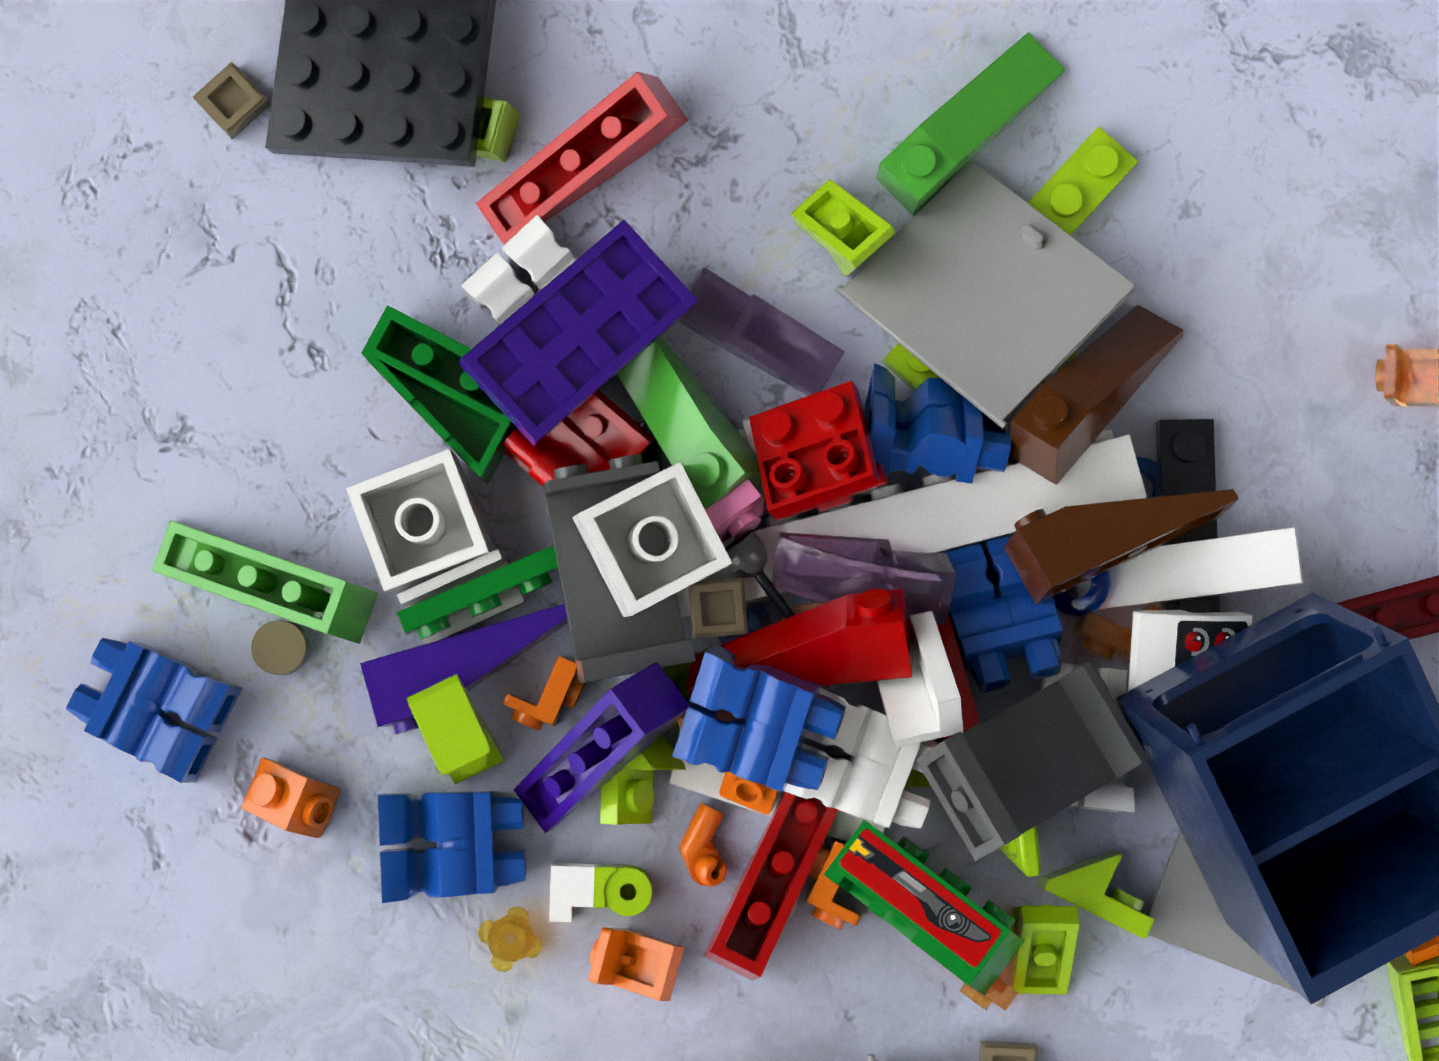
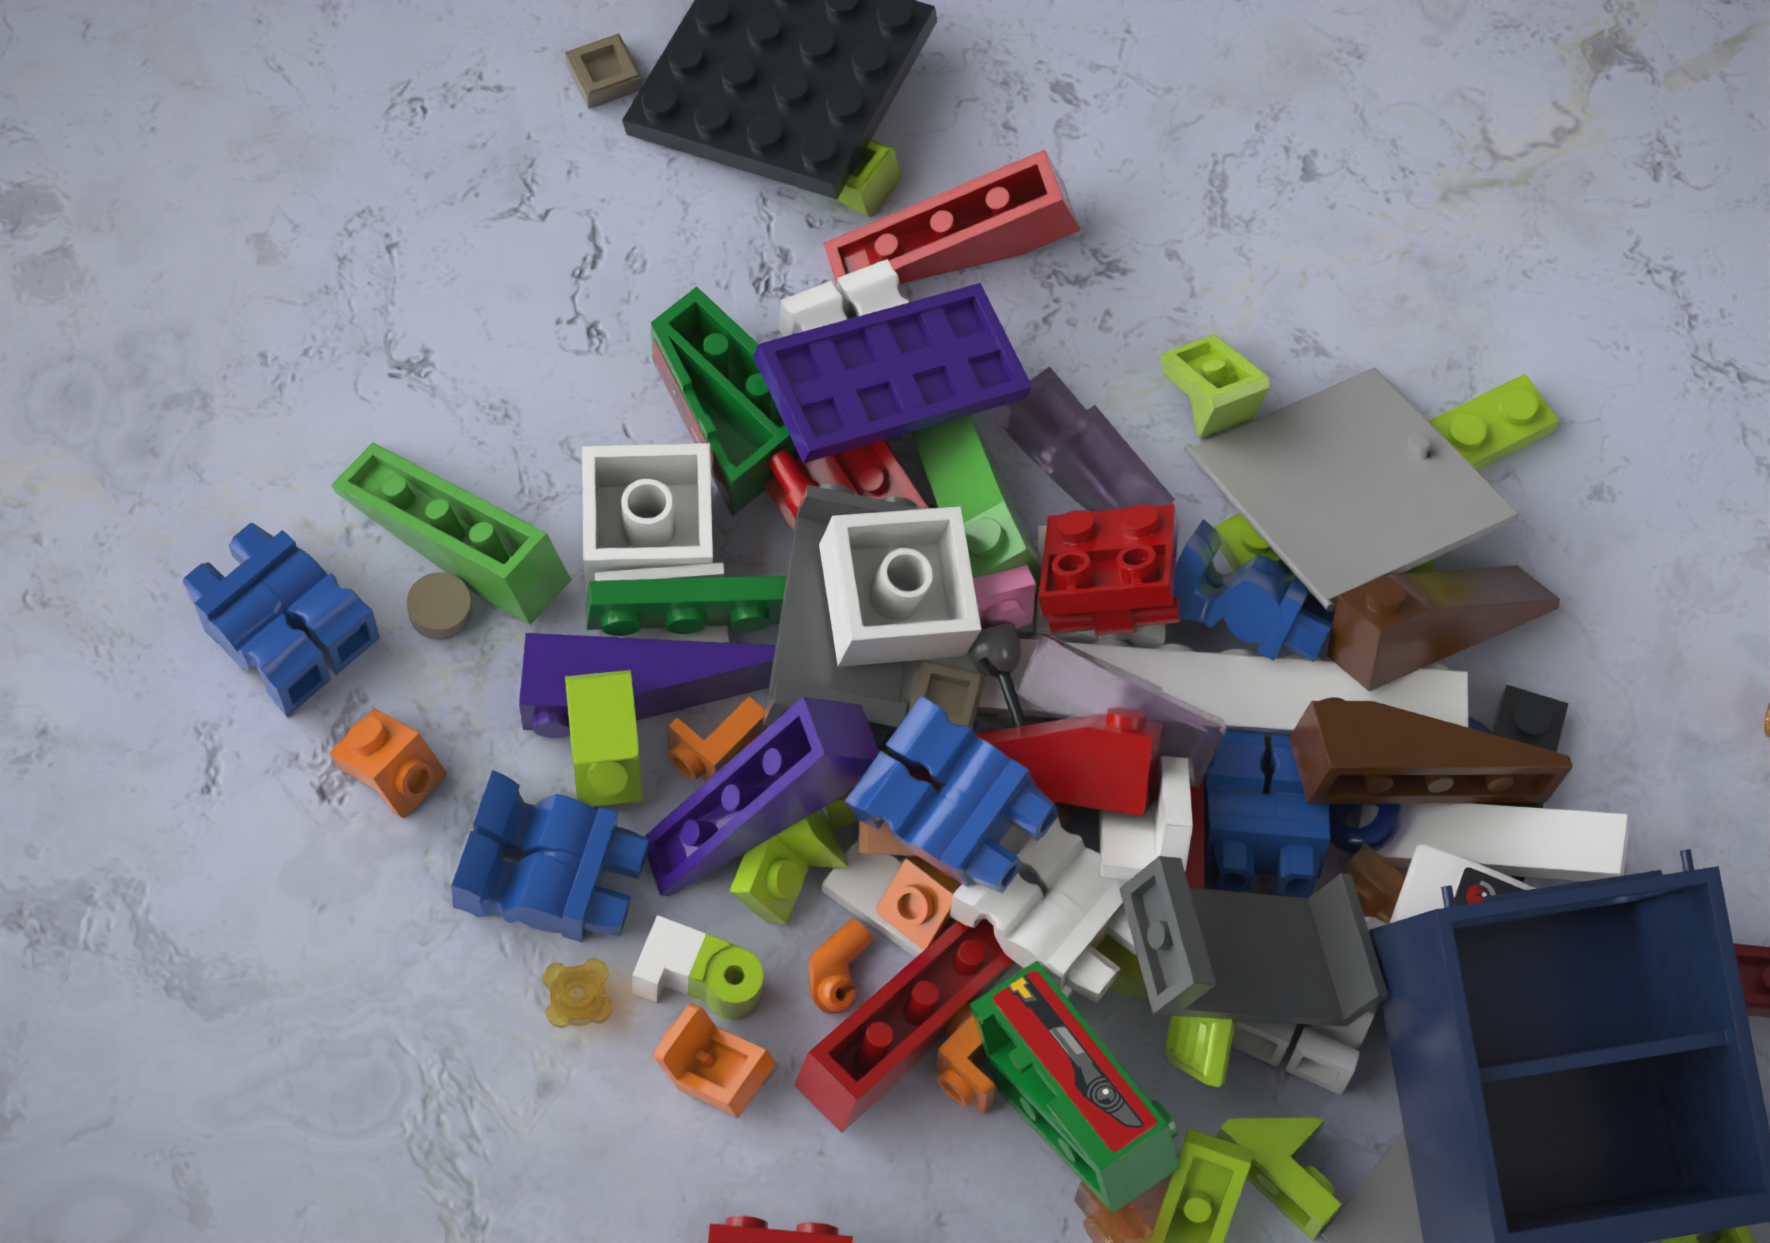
camera: 10 degrees right, 20 degrees down
(967, 123) = (1376, 328): bright green slope -> none

